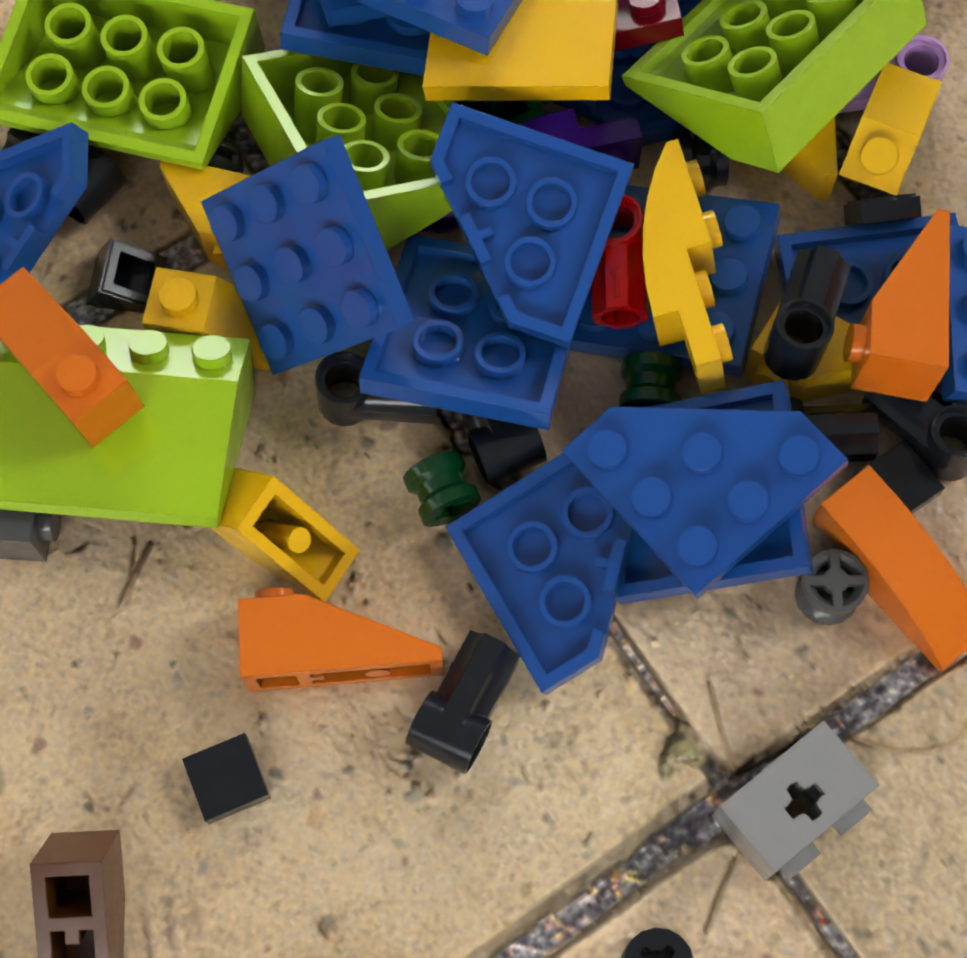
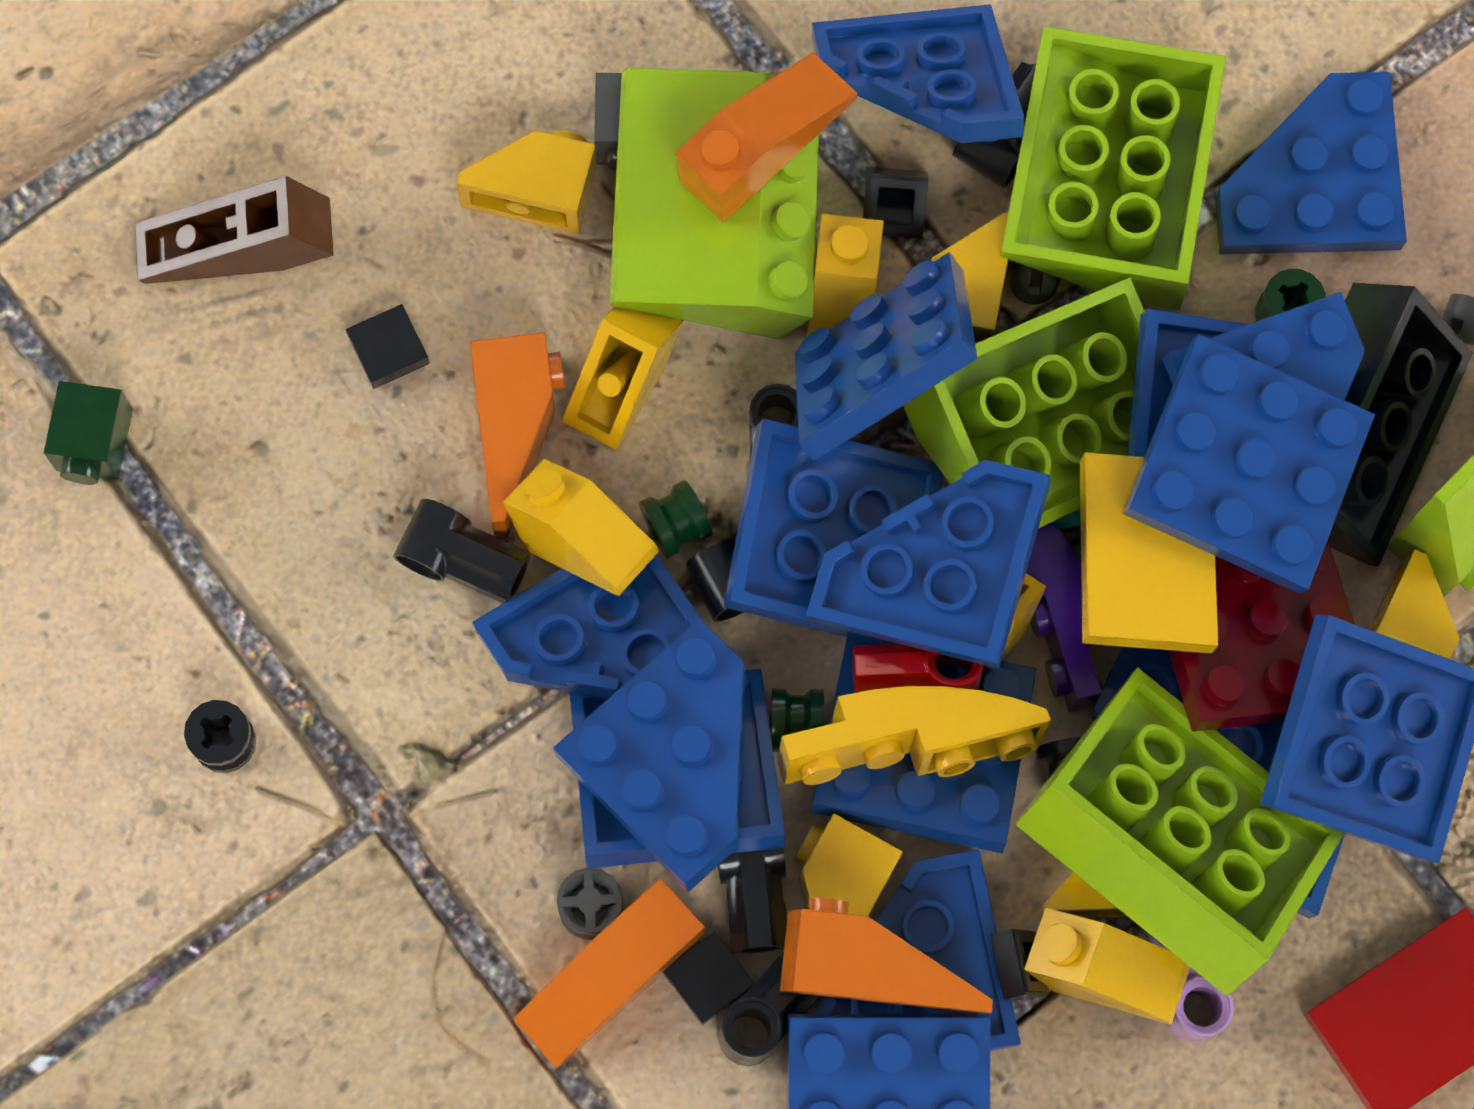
camera: 80 degrees right, 5 degrees up
(61, 611) = (534, 180): none -> yellow slope
(453, 573) = (578, 528): none -> yellow slope
(806, 313) = (871, 863): black piece -> none
(814, 767) = (357, 827): light grey brick -> none

